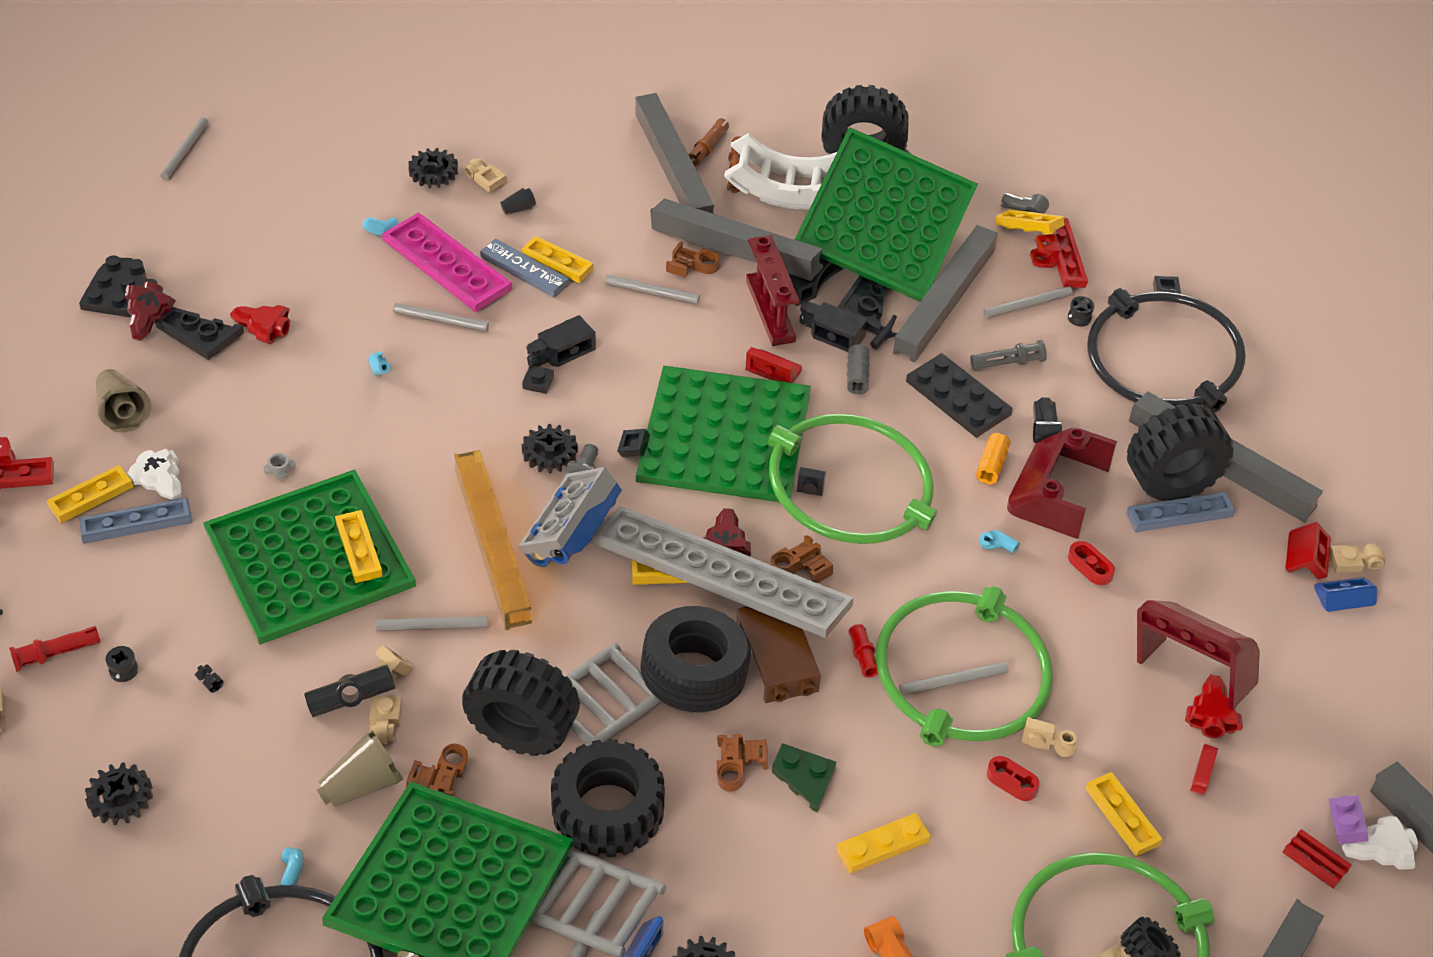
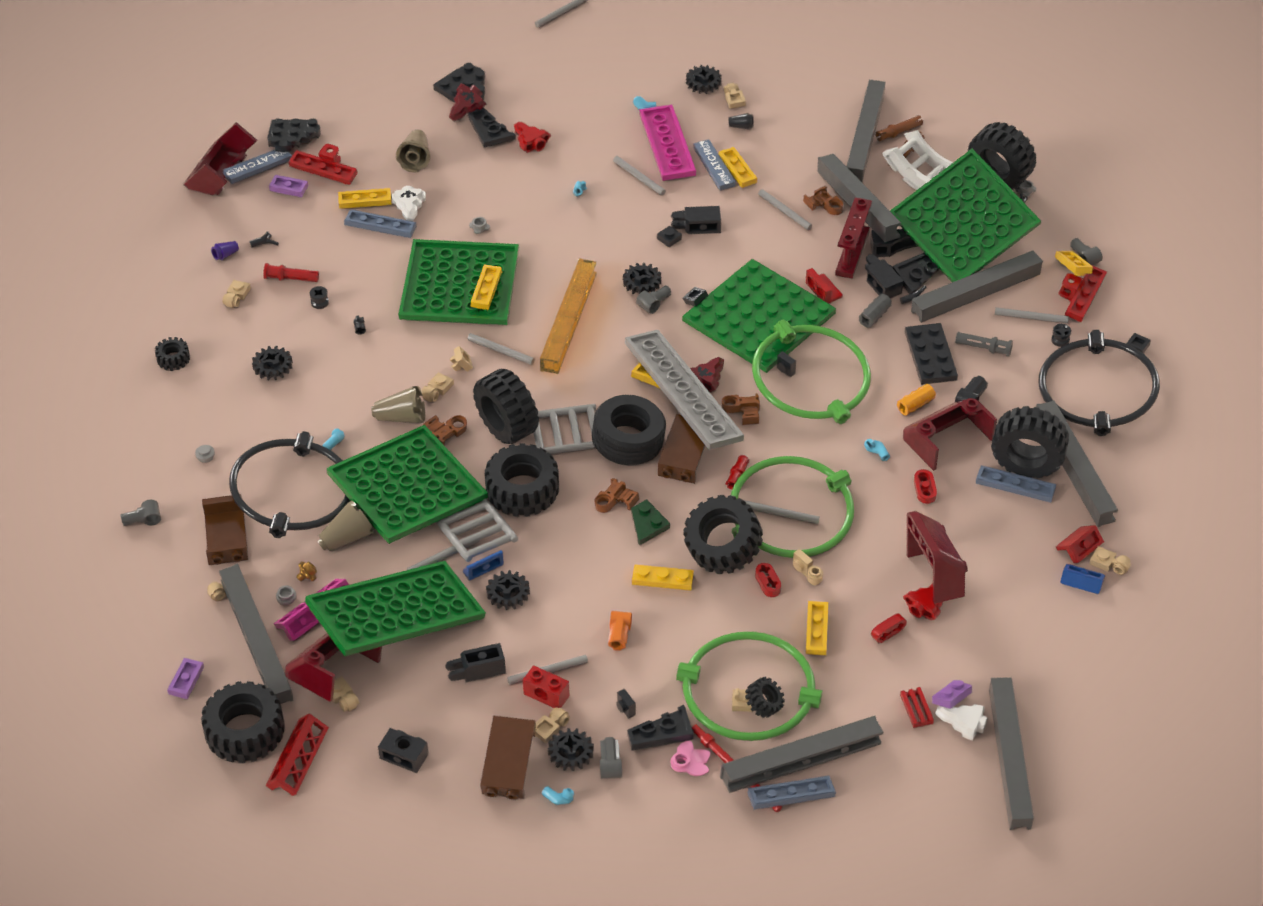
camera: 35 degrees right, 0 degrees up
(331, 696) = (415, 362): black piece -> none
(570, 517) = (619, 321): light grey piece -> none
(937, 708) = (709, 516): none -> black tyre

